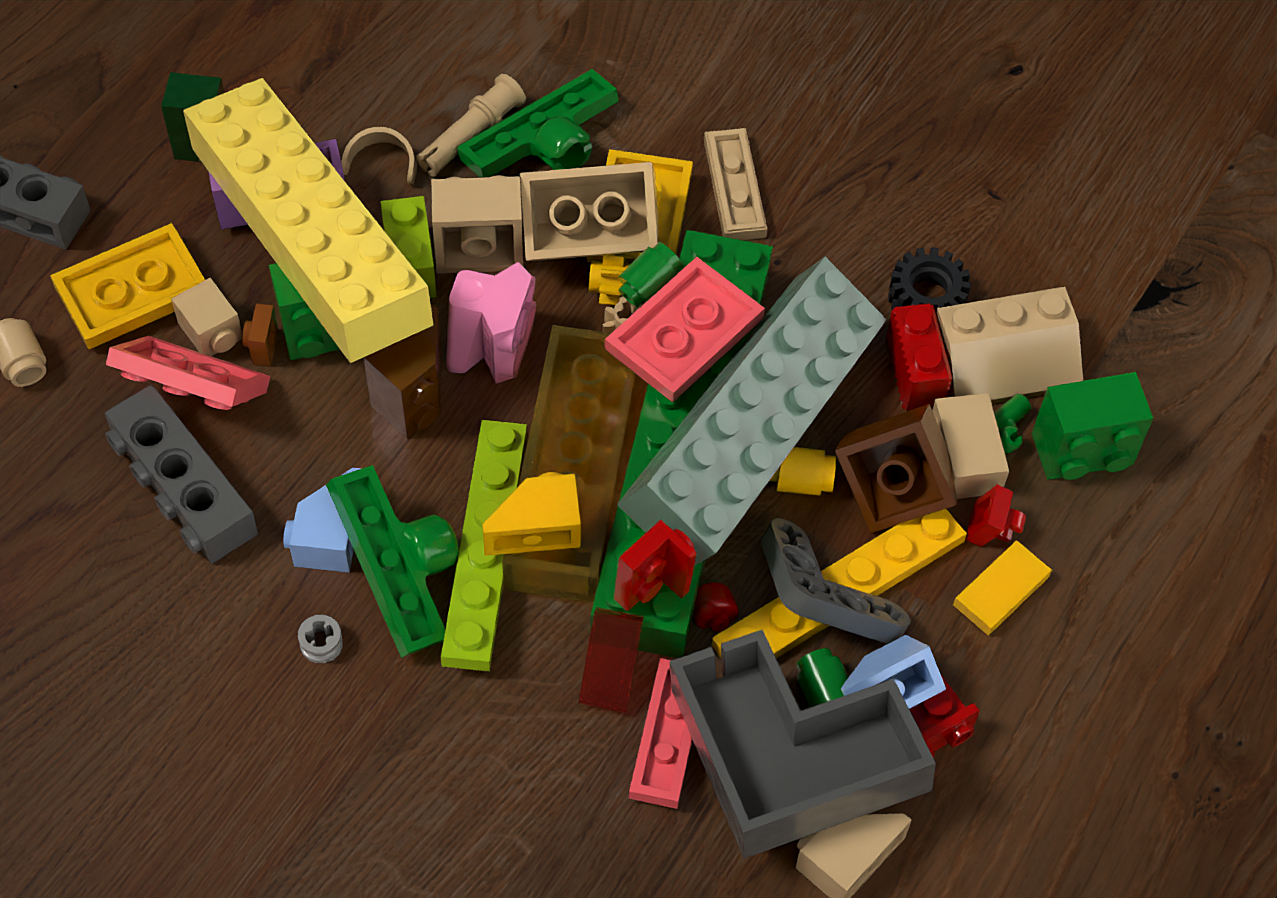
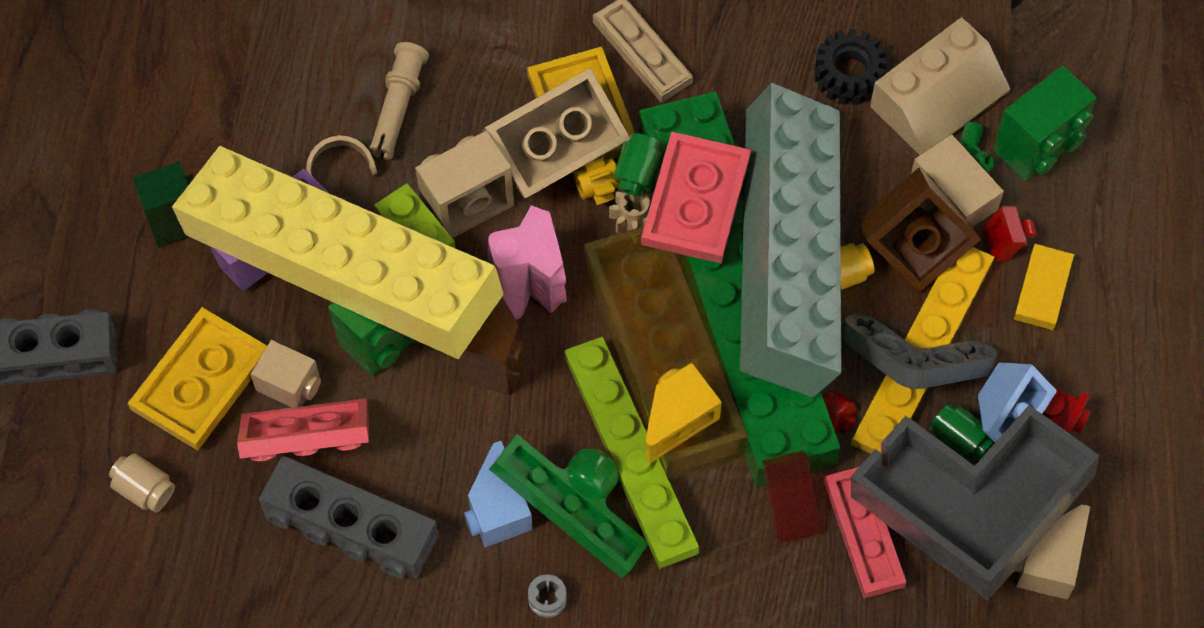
camera: 25 degrees left, 5 degrees up
(261, 335) = (338, 367): dark orange plate -> none
(543, 129) = (460, 75): green plate -> none
(655, 559) = (806, 397): red bracket -> none
(918, 355) = (877, 129): red brick -> none

